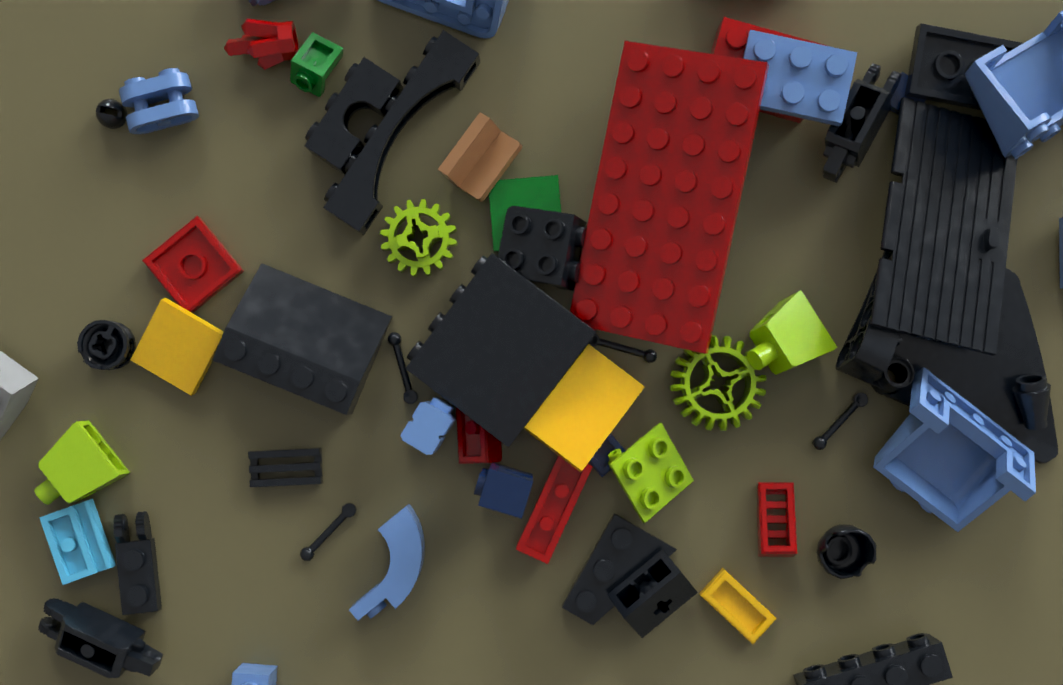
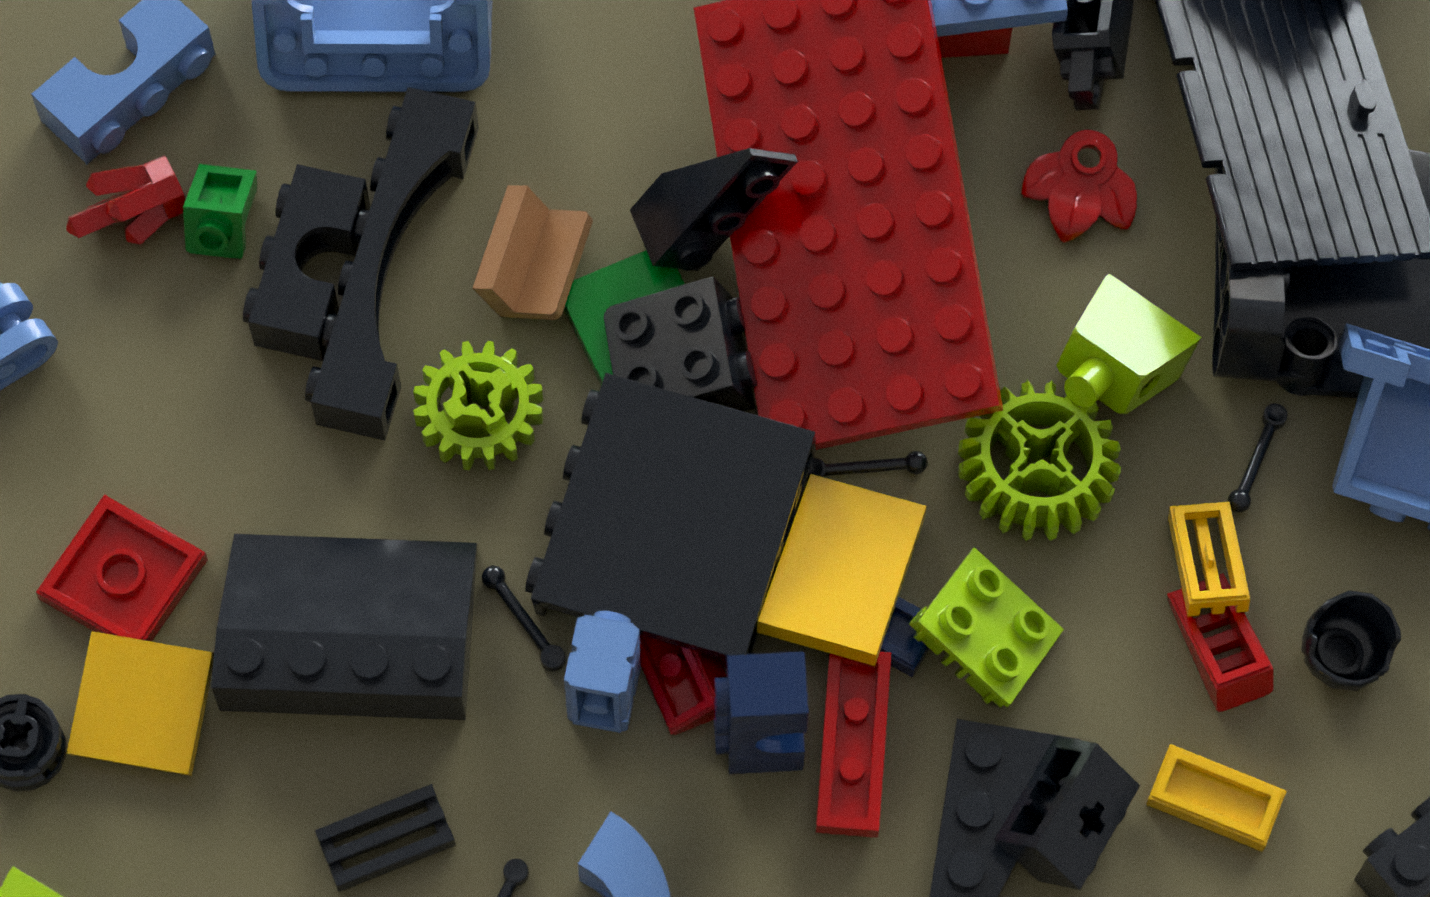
camera: 20 degrees left, 20 degrees down
(582, 169) = (701, 205): none -> black slope
(781, 501) = (1214, 596): none -> yellow tile
(804, 228) = (1082, 193): none -> red plate

